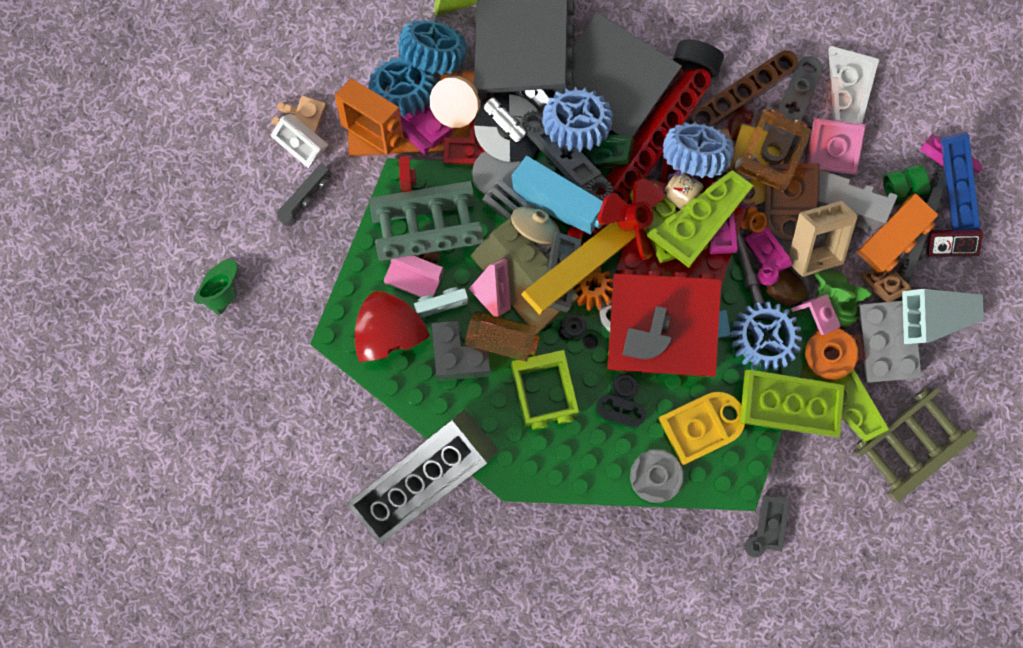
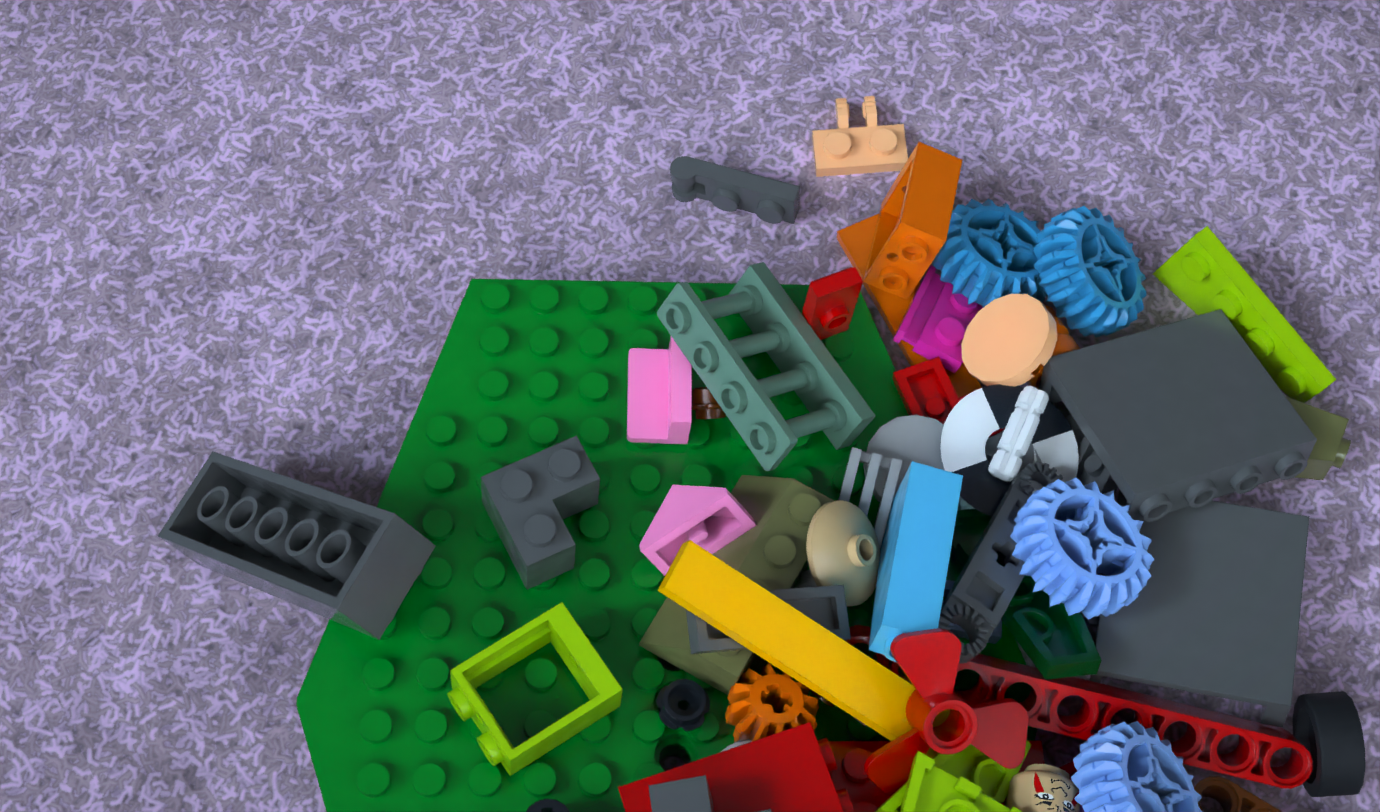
camera: 70 degrees right, 20 degrees down
(218, 287) = (516, 130): green piece -> none
(299, 139) = (824, 143): white slope -> none
(385, 326) = (542, 370): red brick -> none
(432, 305) = (617, 438): light aqua plate -> none
(502, 336) = (602, 565): clear orange window -> none

